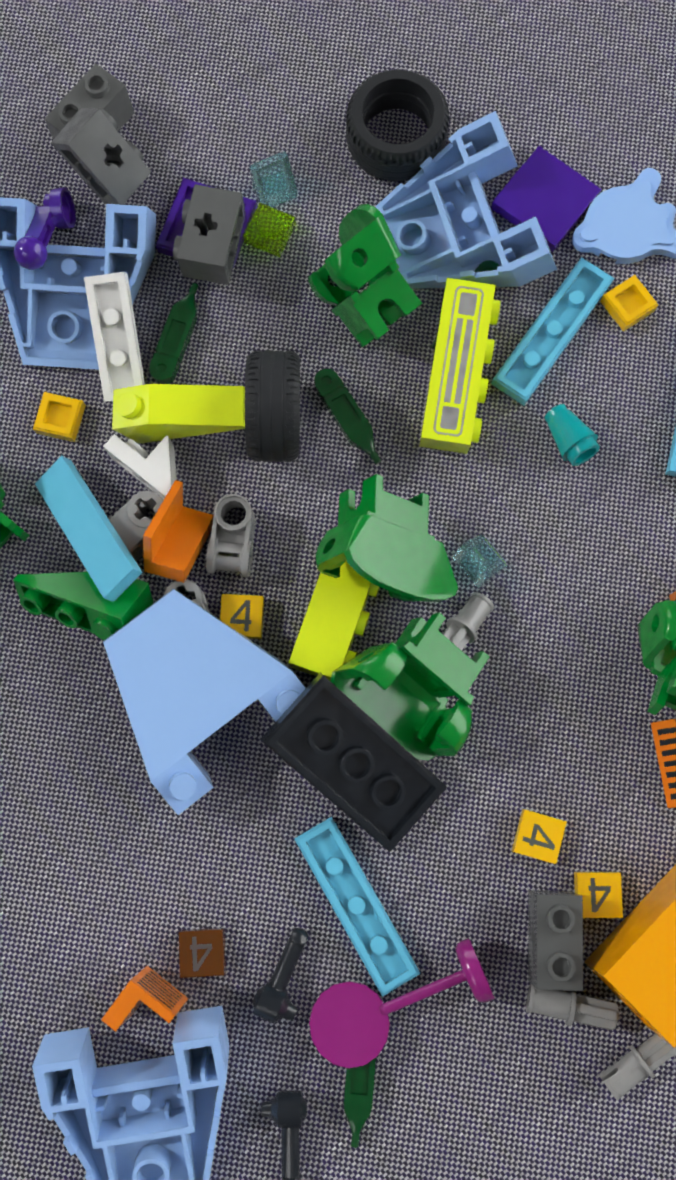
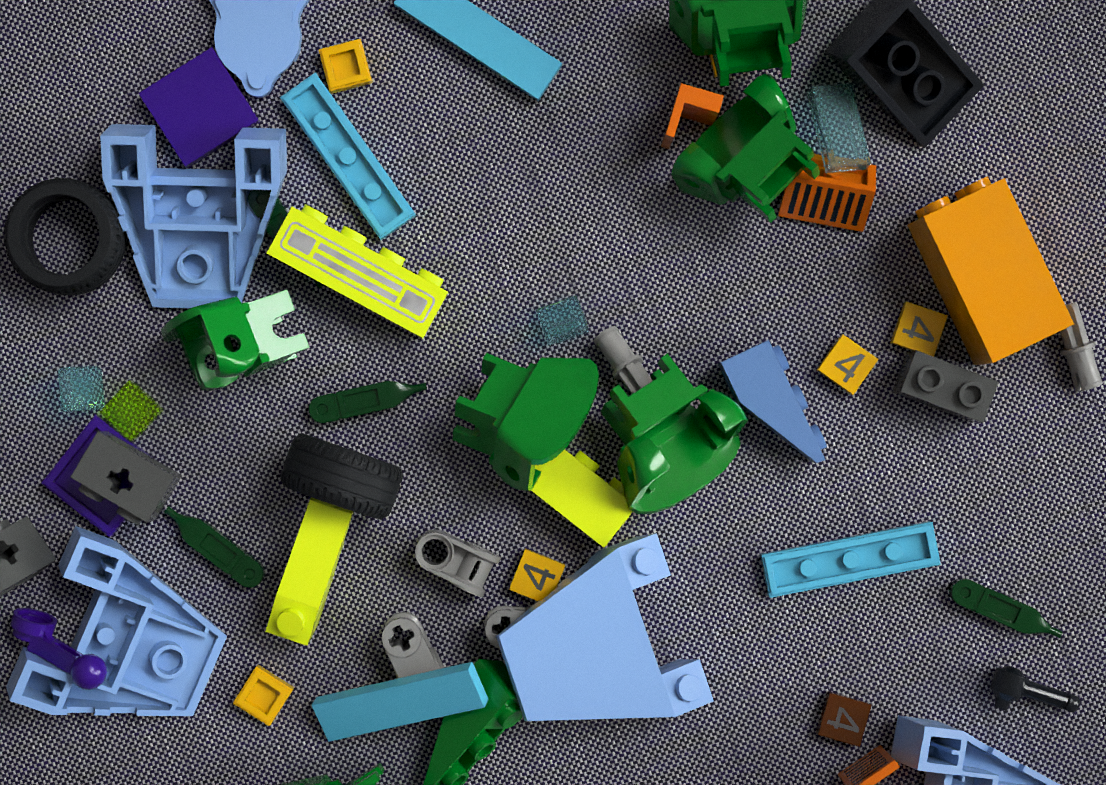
camera: 70 degrees left, 10 degrees up
(114, 332) = (203, 611): white plate -> none
(155, 471) = (362, 614): white slope -> none
(175, 537) = (440, 616): orange panel -> none
(272, 999) = (908, 666): black piece -> none
(353, 1023) = (952, 599): magenta piece -> none
(354, 762) = (720, 517): black tile -> none
(483, 767) = (764, 391): none -> medium blue slope
(572, 1007) = (1011, 391): light grey axle -> none
(573, 437) = (468, 182): teal cone -> none

